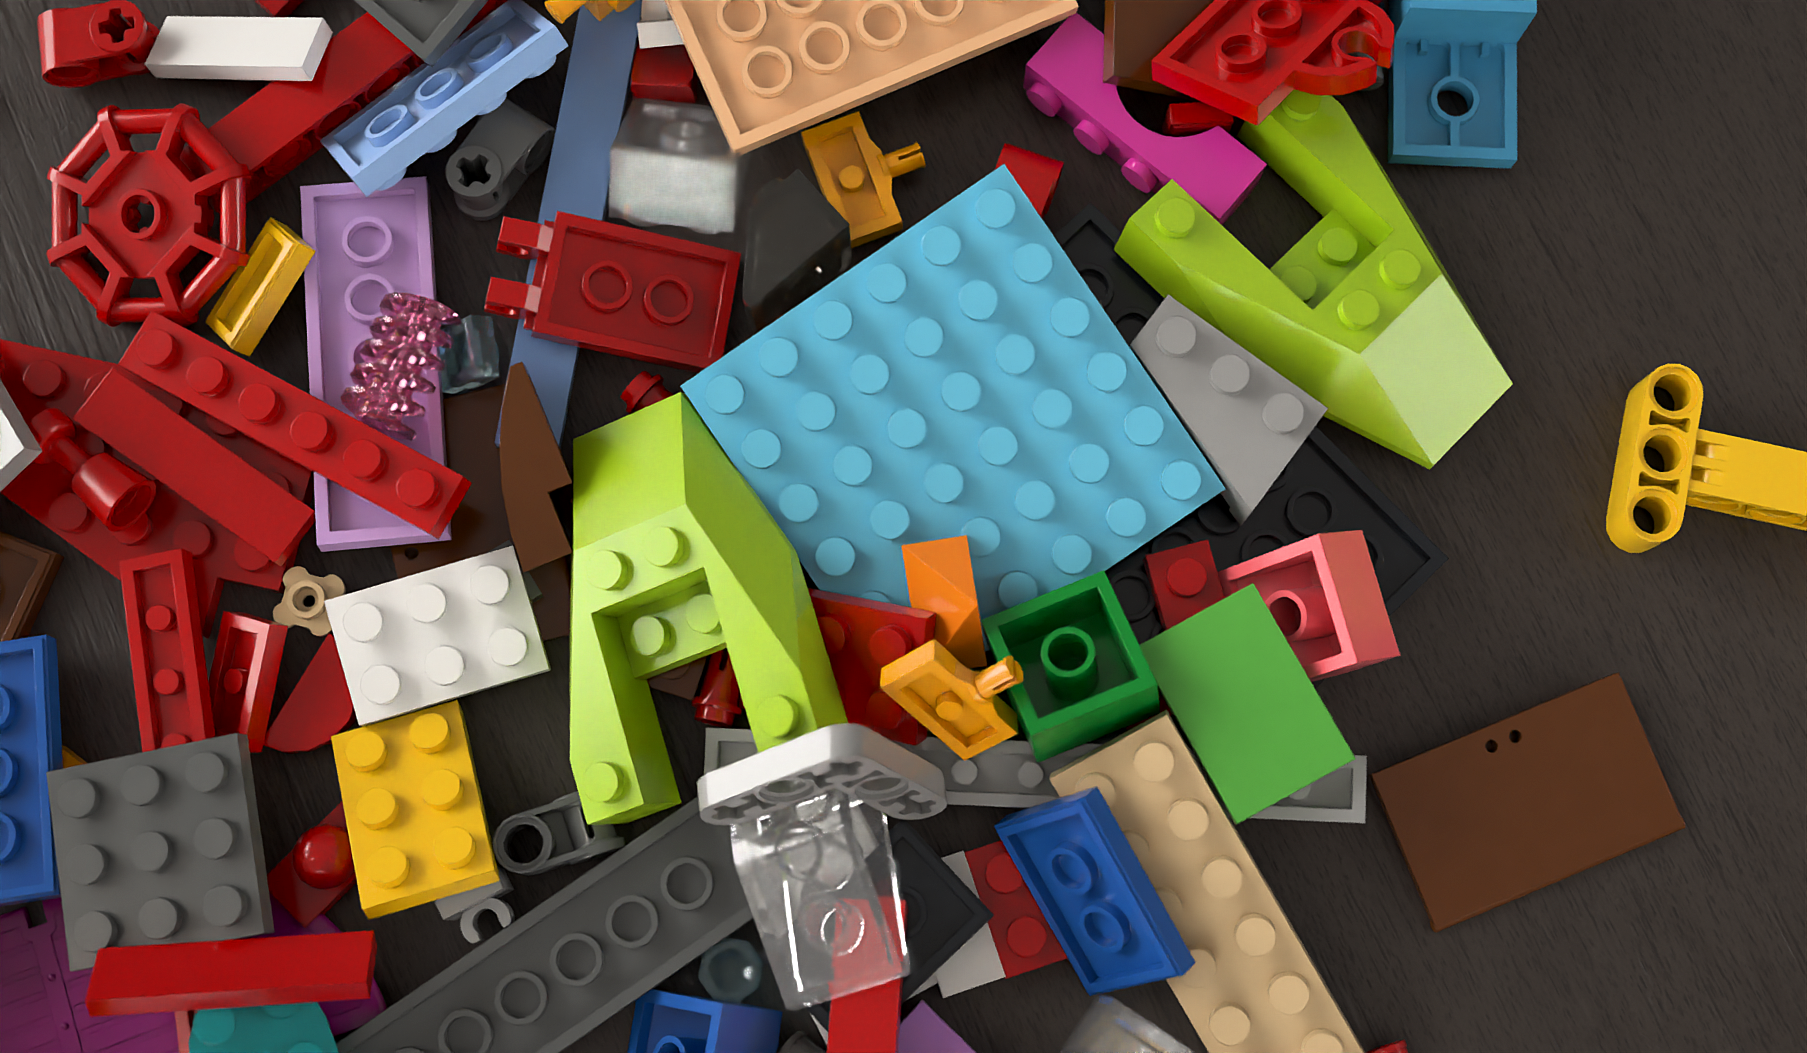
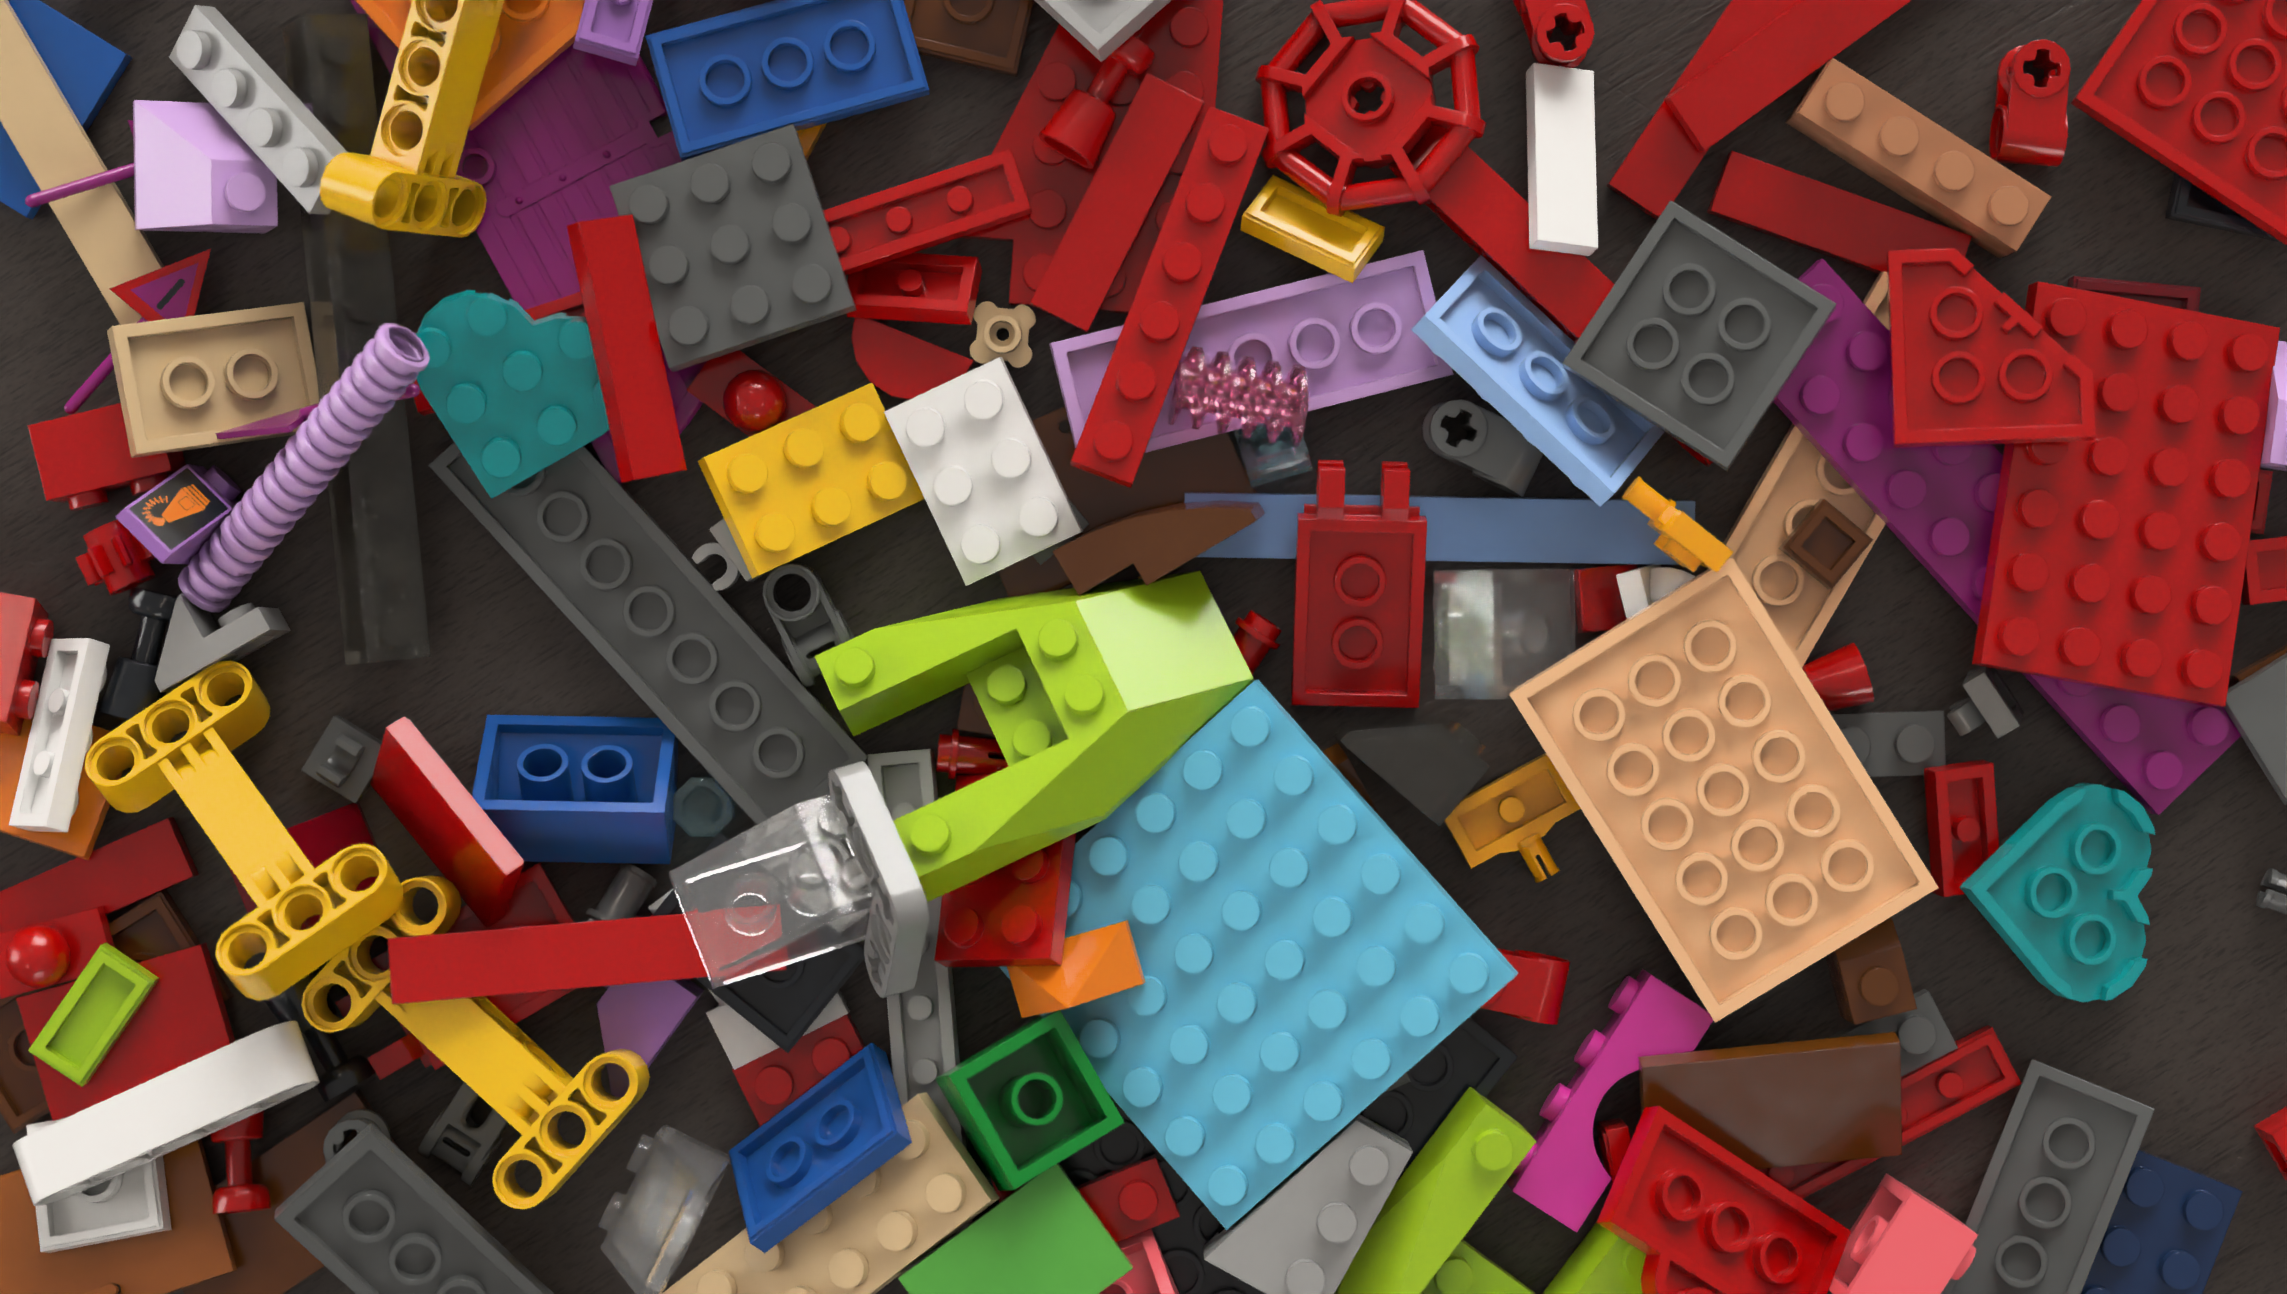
camera: 80 degrees right, 10 degrees up
(954, 700) = (975, 994): light orange plate -> none

